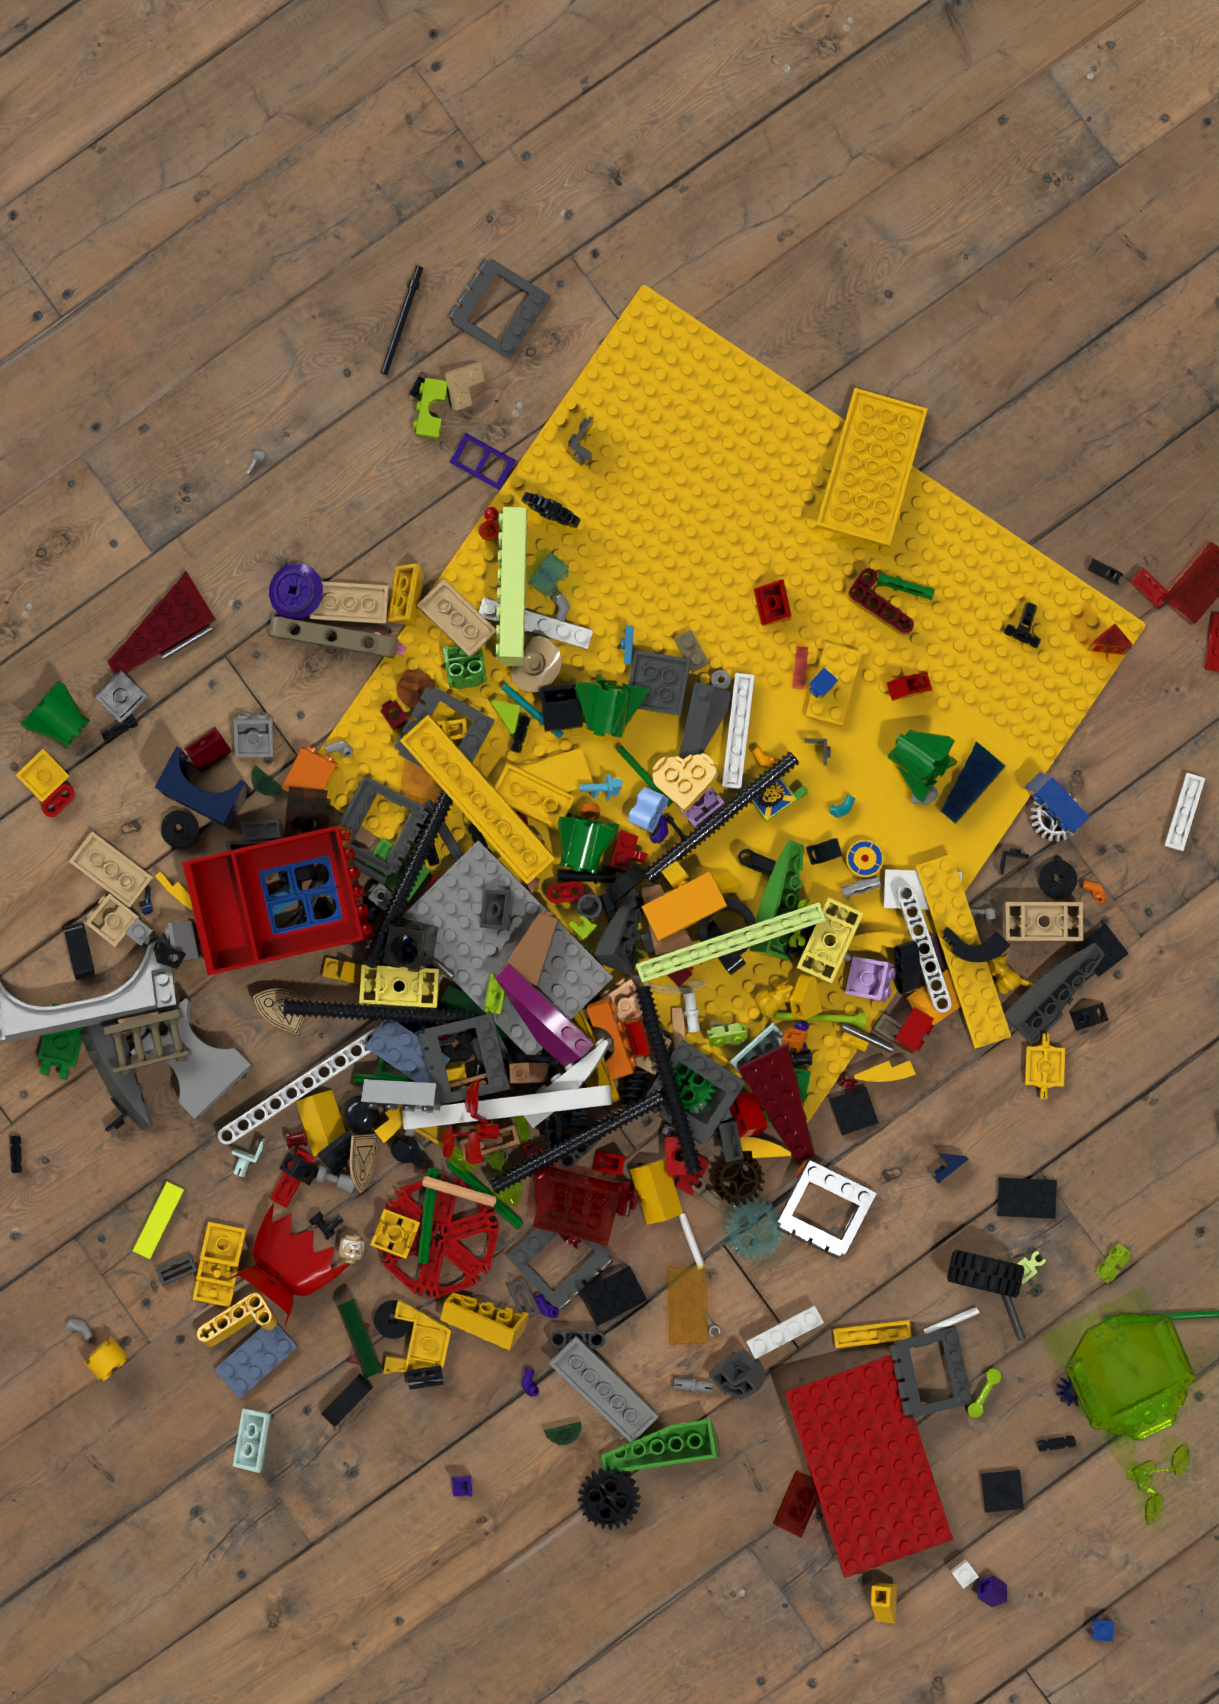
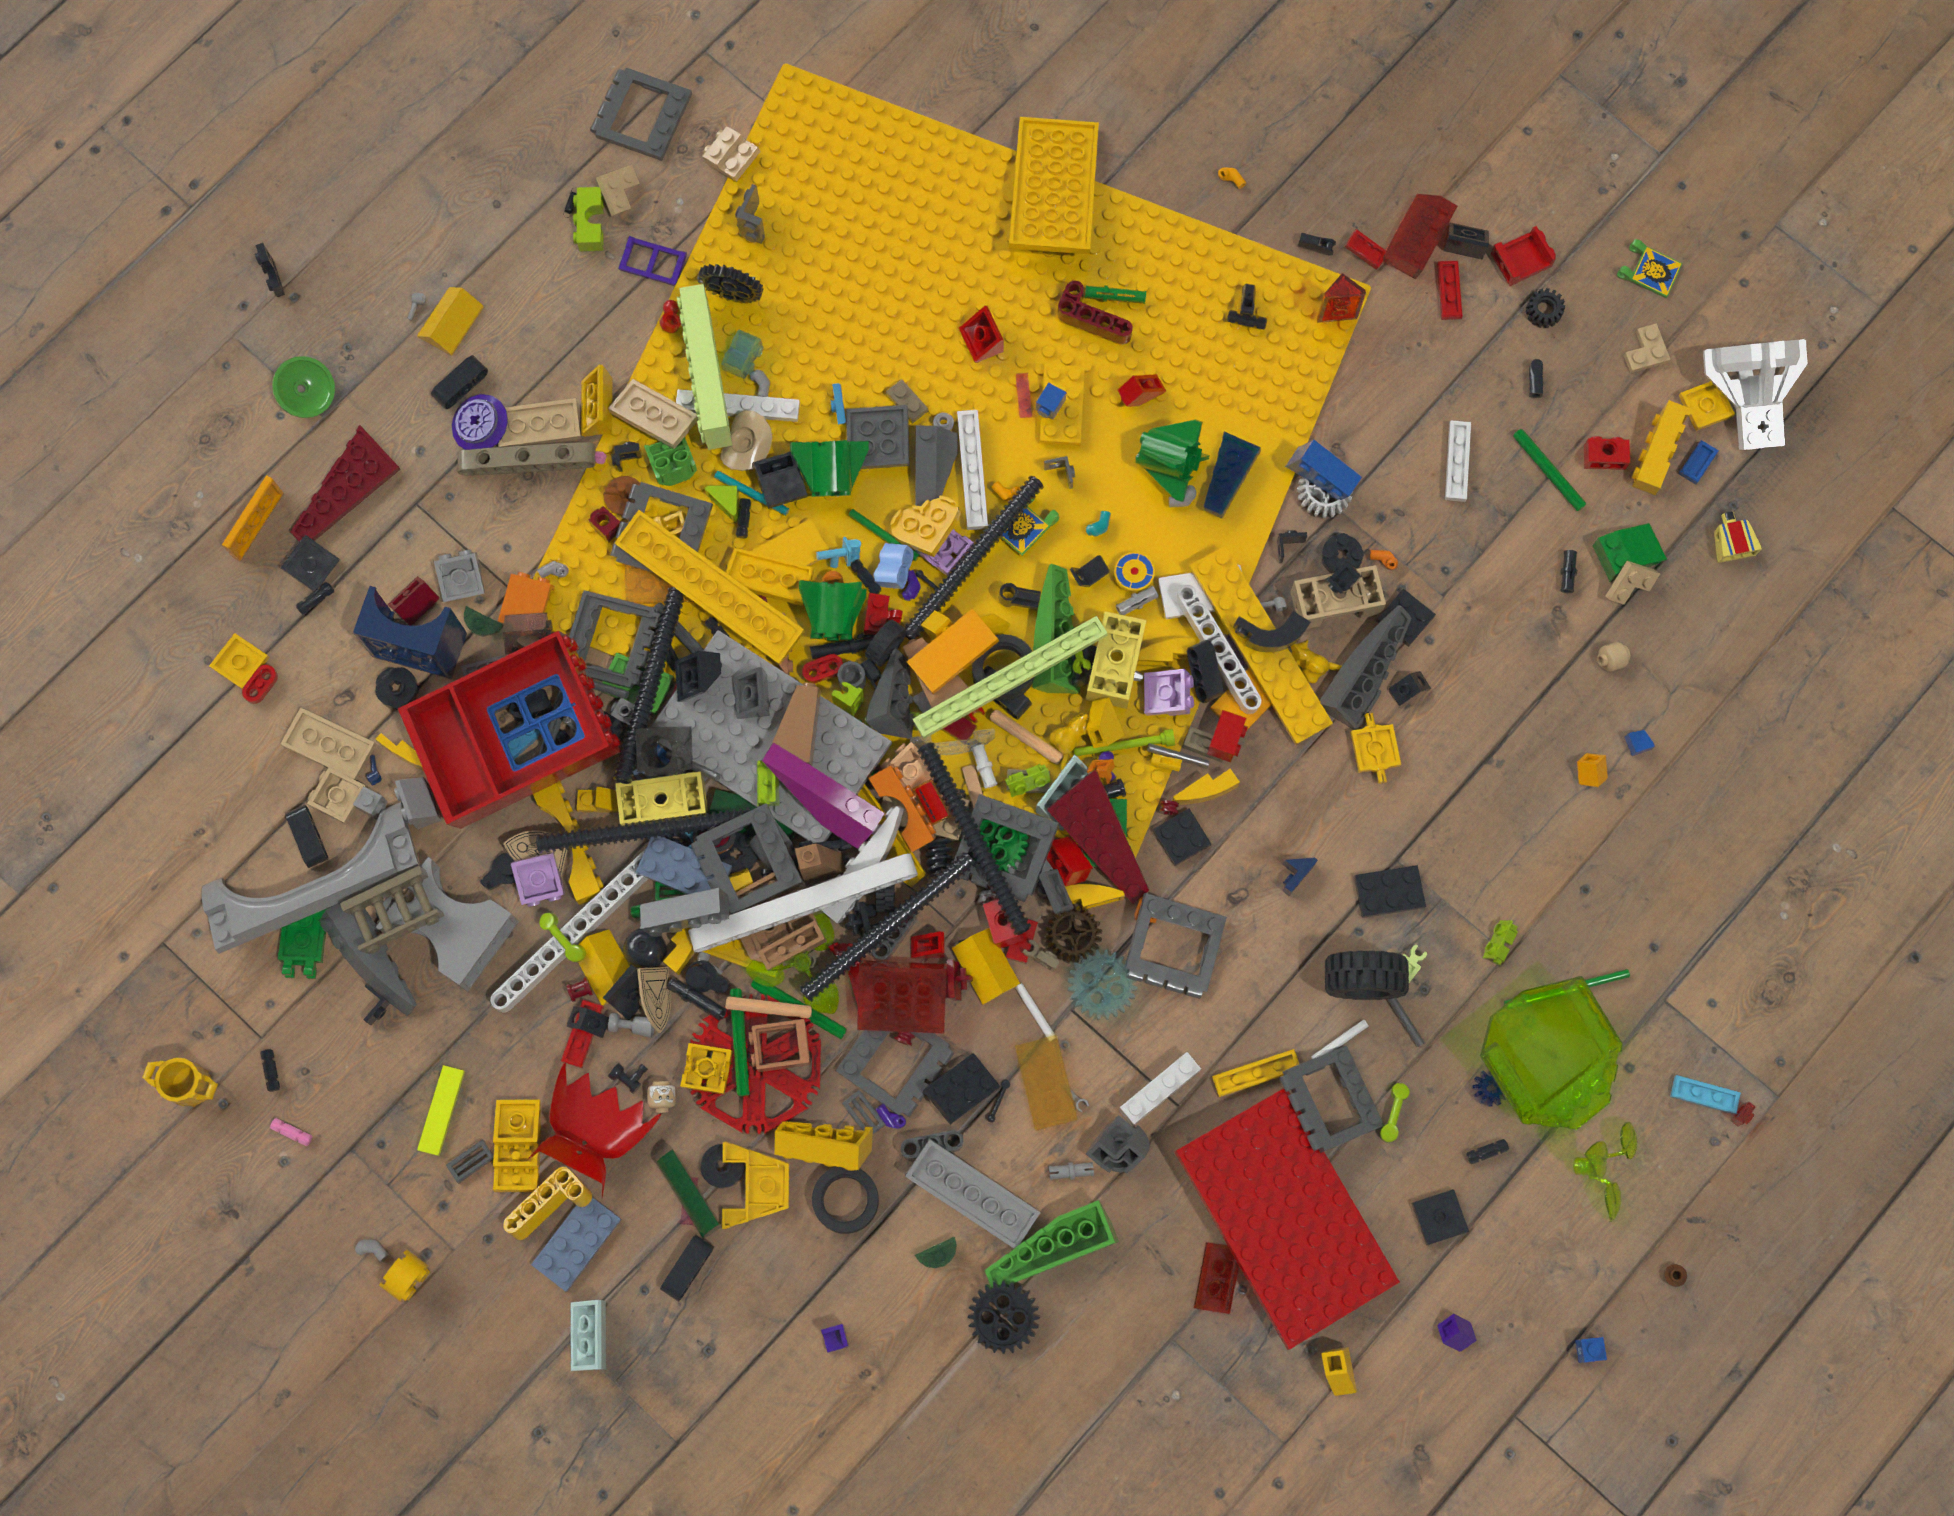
camera: 10 degrees left, 10 degrees down
(26, 1212) = (291, 1132): none -> bright pink axle
(56, 716) = (241, 593): green brick -> none
(76, 644) = (253, 518): none -> light orange tile
(125, 395) = (268, 266): none -> black plate
(151, 529) = (315, 380): none -> bright green dish
(162, 952) = (394, 809): black bracket -> none
(186, 642) = (372, 497): flat silver bar -> none
(245, 1158) = (525, 1023): light aqua bracket -> none
(247, 1018) = (500, 872): none -> black piece
(277, 1034) = (538, 879): none -> lavender plate
(283, 547) = (459, 382): none -> black beam
(285, 482) = (451, 320): none -> yellow slope
(297, 1106) = (573, 952): none -> lime bar
(317, 1041) = (582, 878): none -> yellow arch
(394, 1165) = (689, 994): none -> black pin
(413, 285) = (549, 108): black bar -> none
(425, 1377) = (770, 1222): black hips -> none
(428, 648) = (627, 451): none -> black bracket
(440, 1233) = (754, 1038): none -> nougat window
(451, 881) = (696, 673): none -> black slope
(483, 1130) = (781, 931): red plant -> none
(493, 1394) = (857, 1224): none -> black tyre
(528, 1384) = (887, 1208): dark purple arm -> none
(575, 370) = (730, 153): none -> tan plate
(620, 813) = (865, 577): none -> black axle
(652, 1298) = (1005, 1085): none -> black hinge
(734, 992) = (1026, 737): none -> light nougat axle
(964, 1573) = (1421, 1319): white brick -> none
(1041, 486) = (1233, 175): none -> light orange arm
(1049, 911) = (1343, 578): none -> black bracket
(1185, 1582) = (1668, 1275): none -> reddish brown plate

